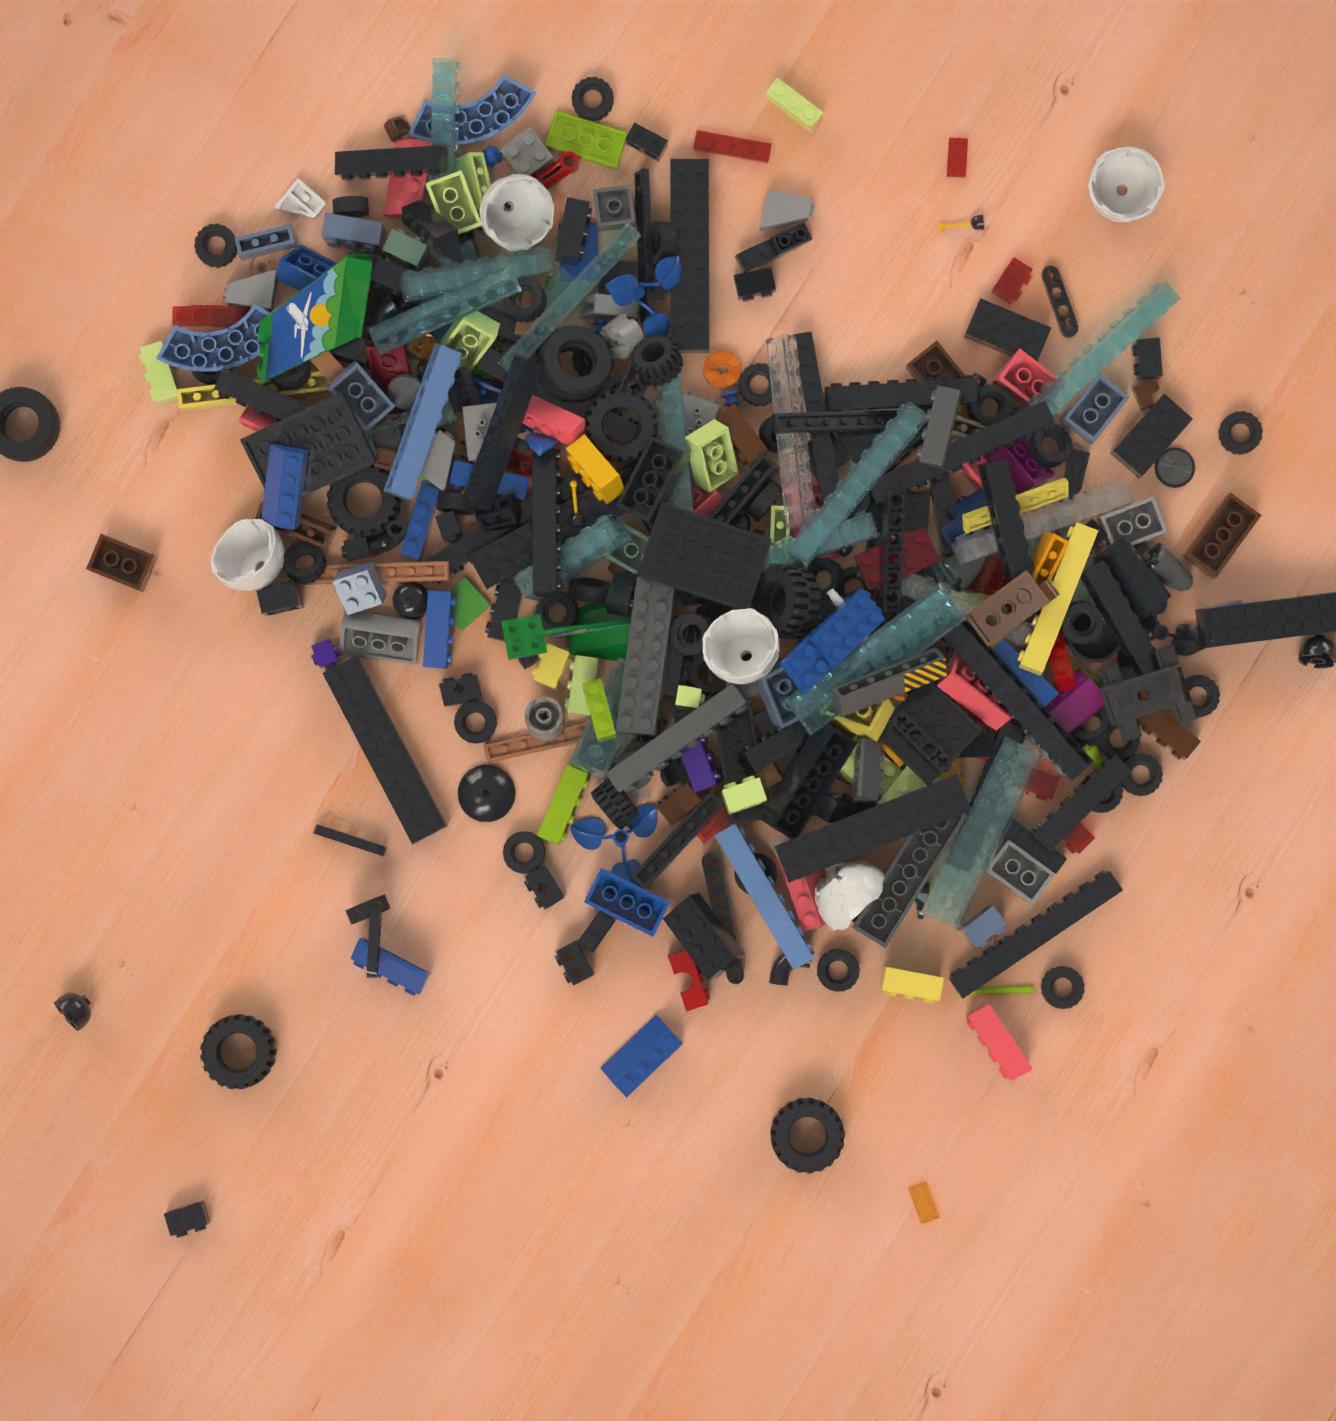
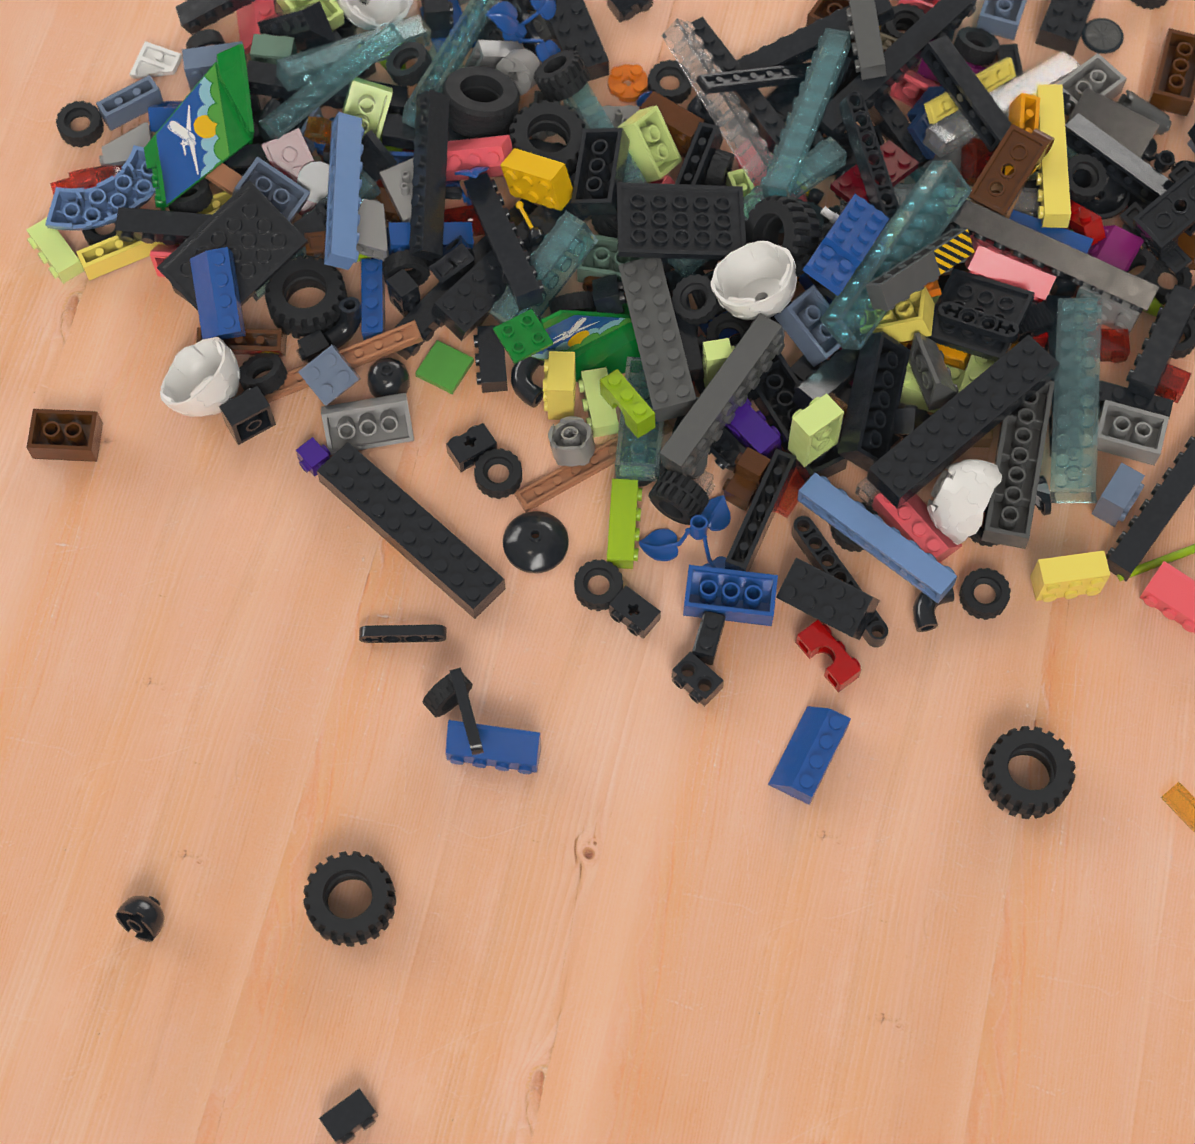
camera: 20 degrees left, 20 degrees down
(438, 629) = (427, 394): blue brick -> none

